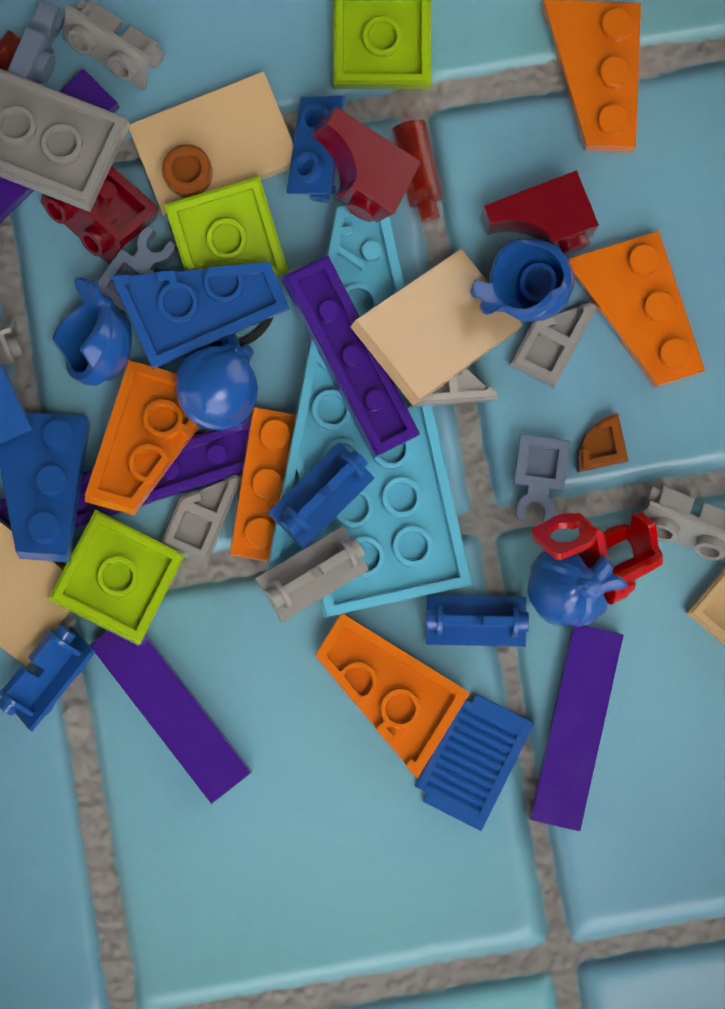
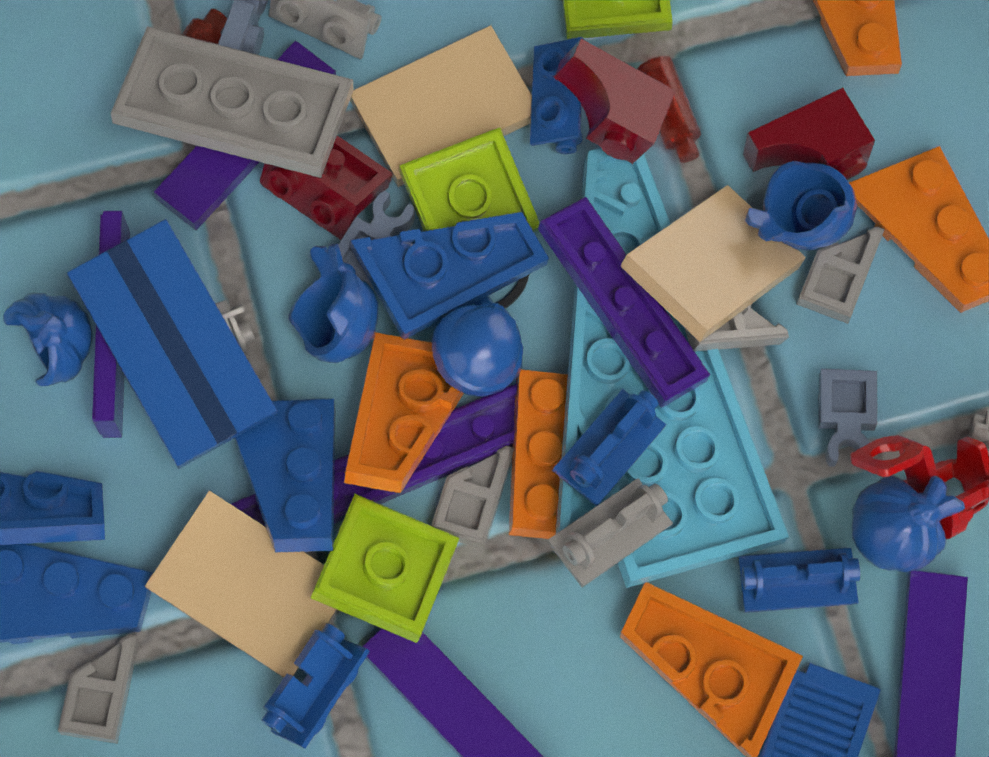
camera: 10 degrees left, 15 degrees down
(187, 170) = (419, 130): dark orange tile -> none
(602, 445) = (913, 378): dark orange tile -> none

